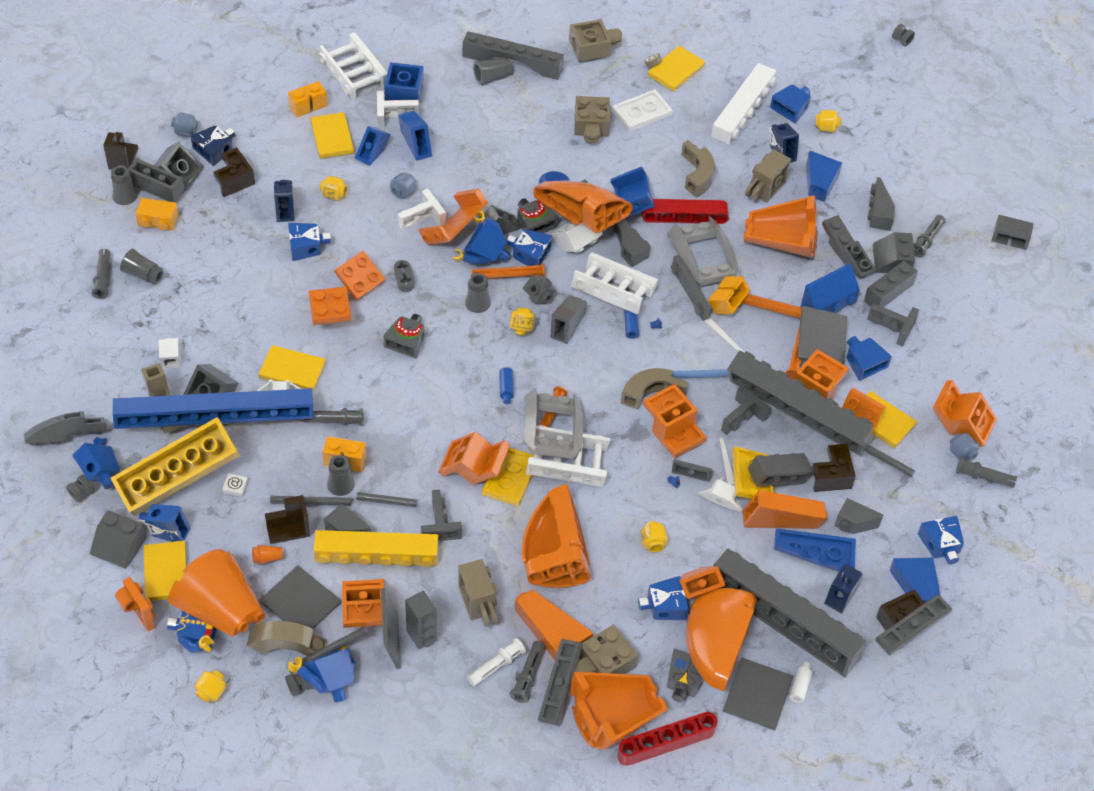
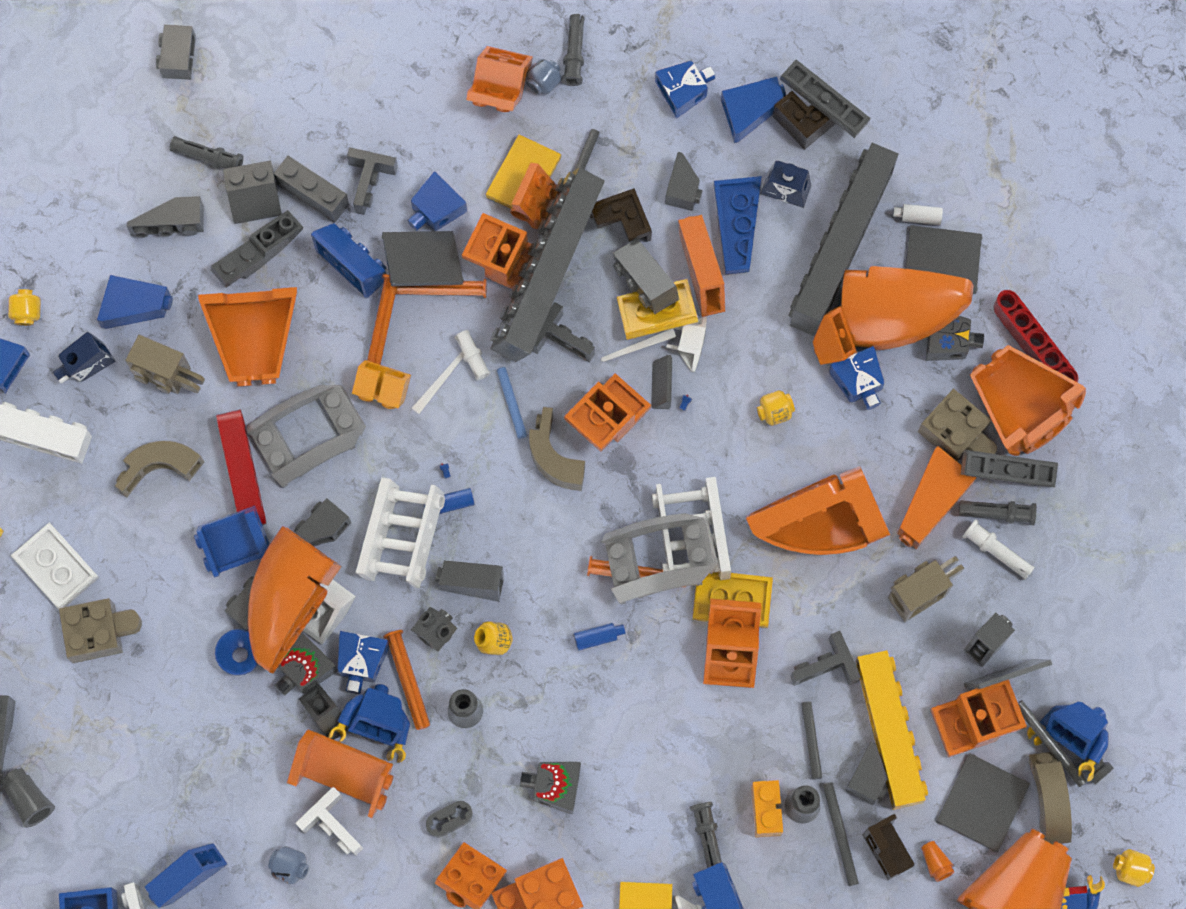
camera: 100 degrees left, 20 degrees up
(690, 286) = (348, 456): dark grey plate -> none
(728, 358) = (472, 355): none -> white pin

